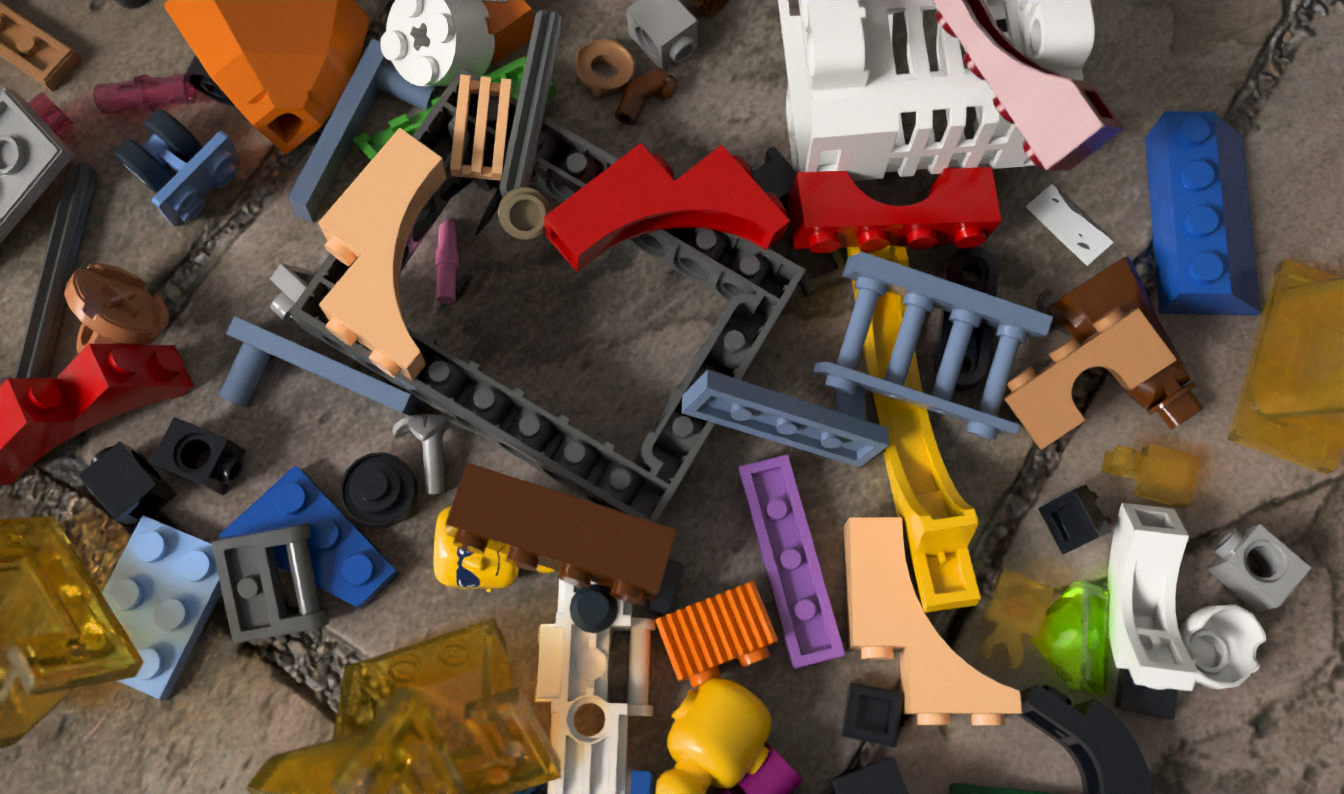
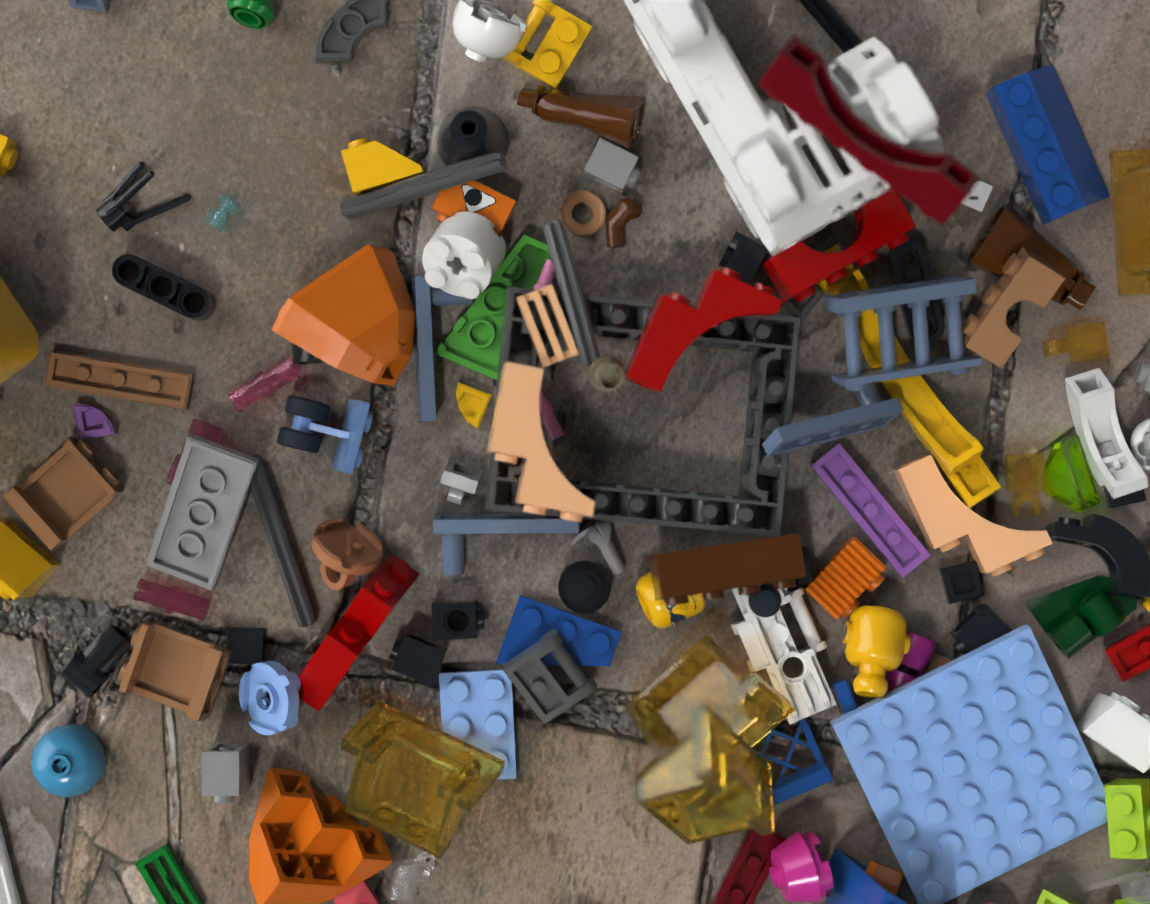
camera: 25 degrees left, 15 degrees up
(1075, 519) = (1040, 400): black tile -> none

